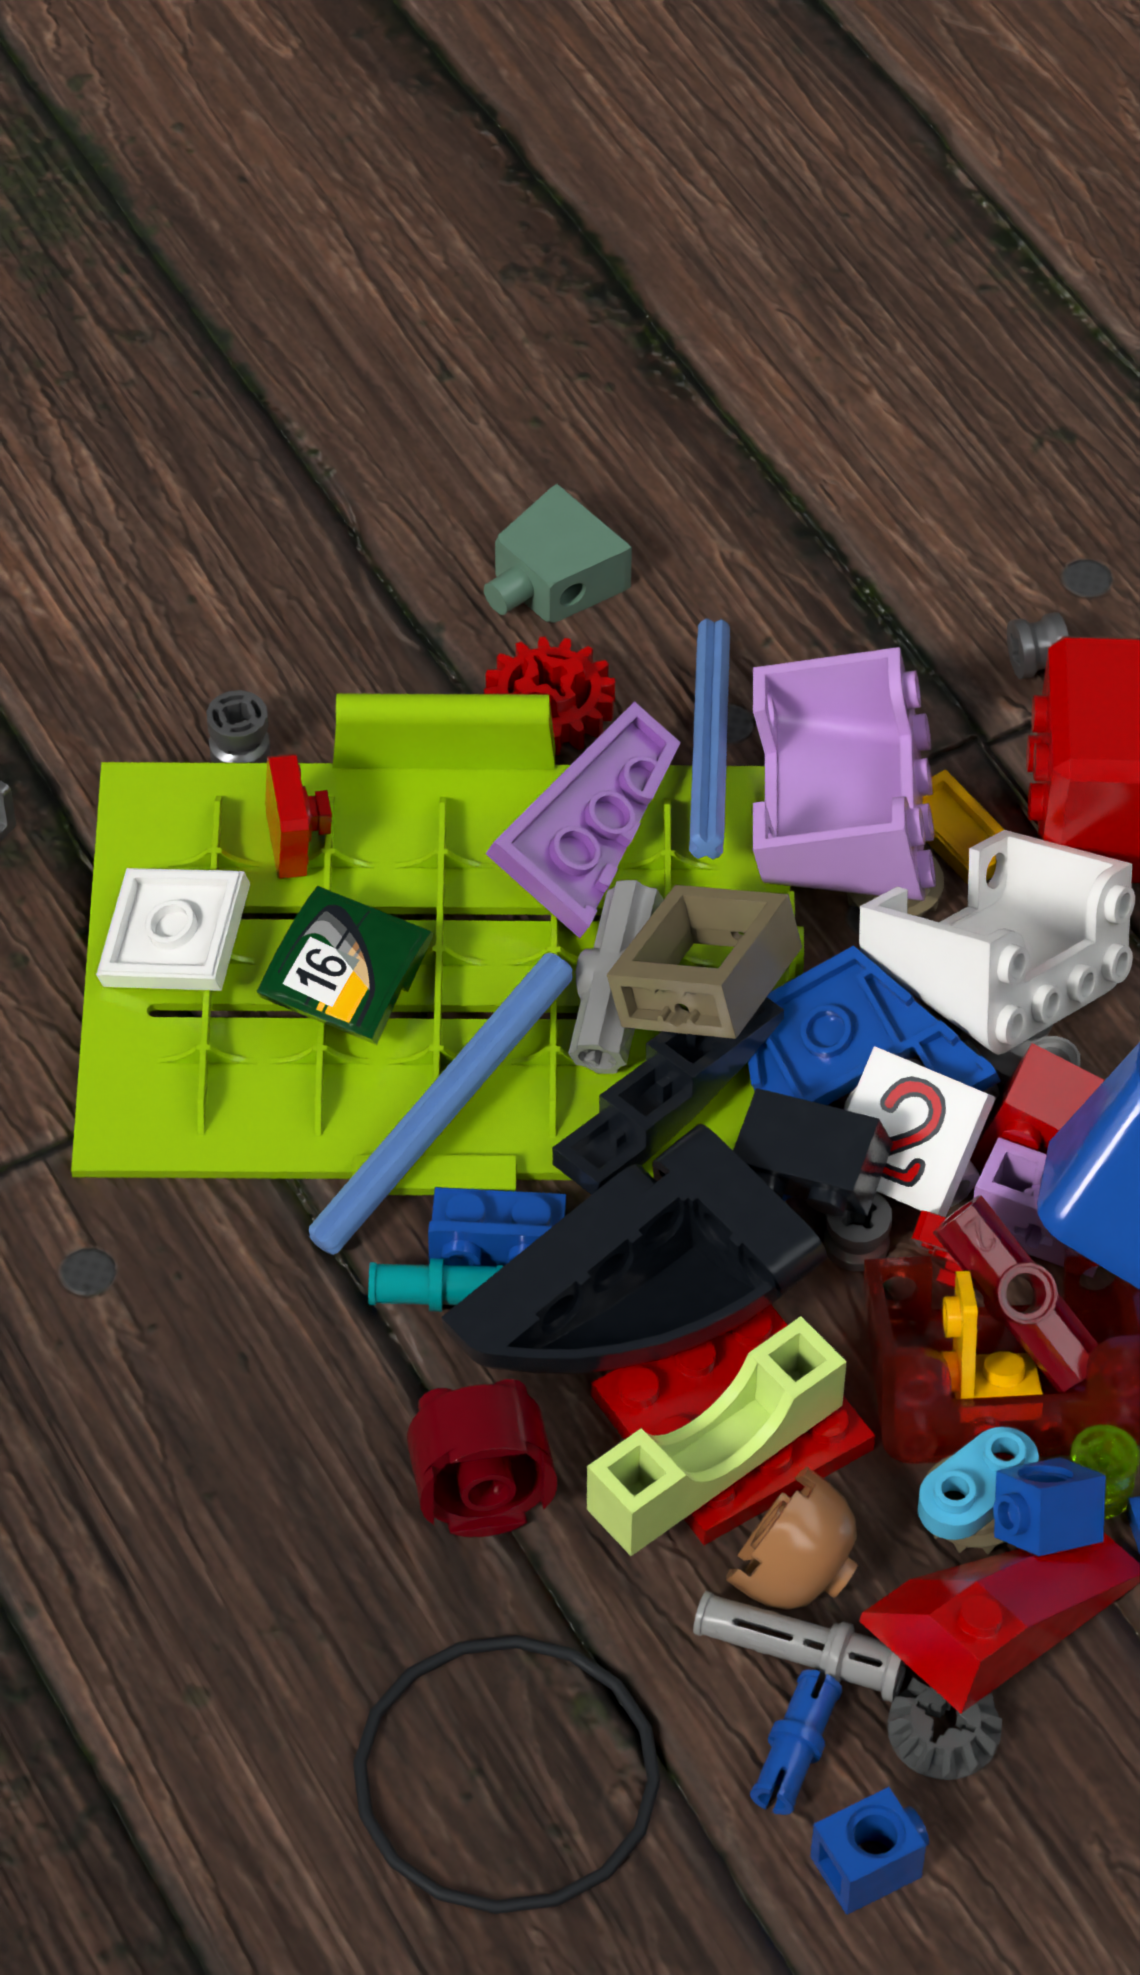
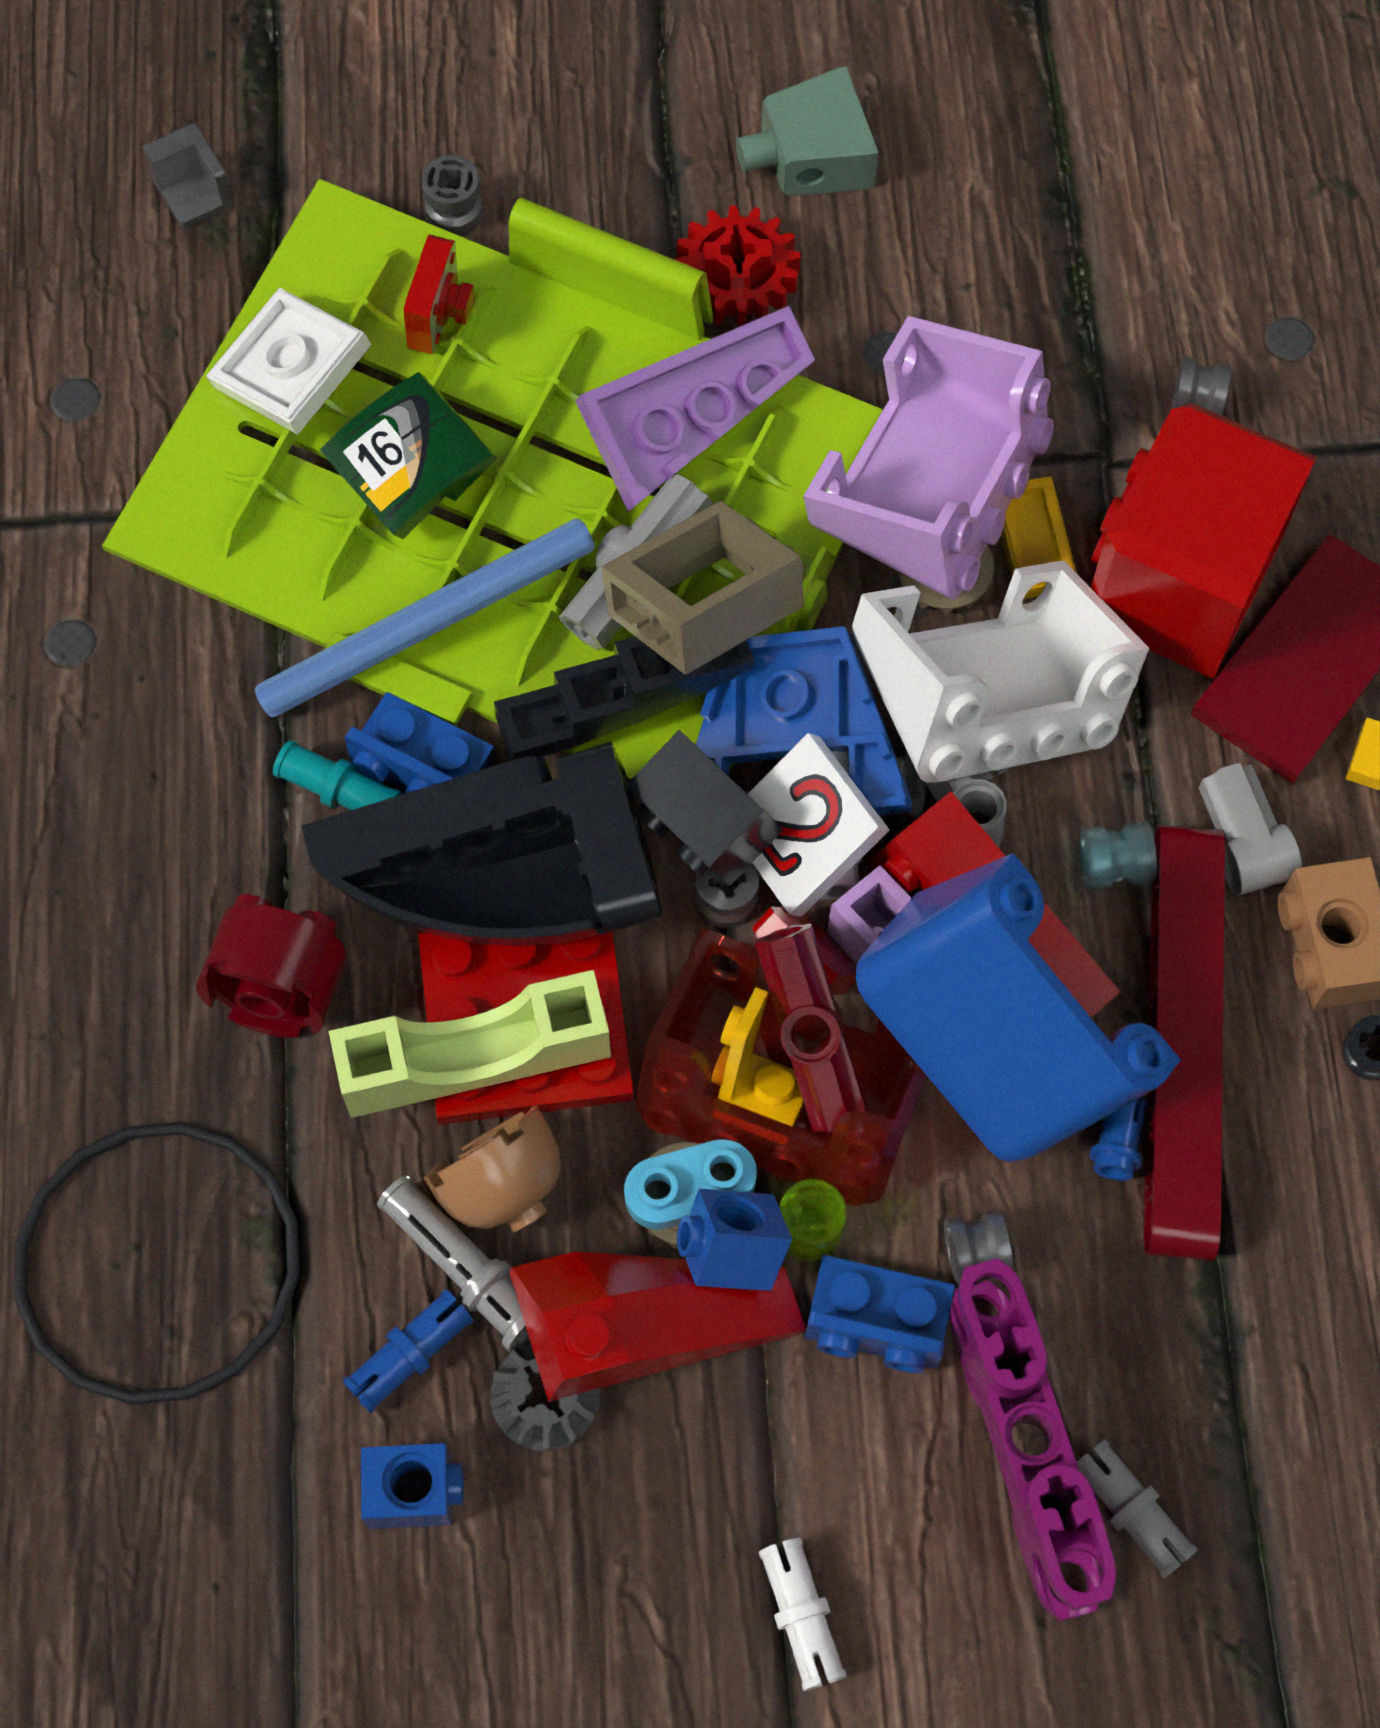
camera: 25 degrees right, 15 degrees up
(710, 740) = (845, 367): medium blue axle -> none

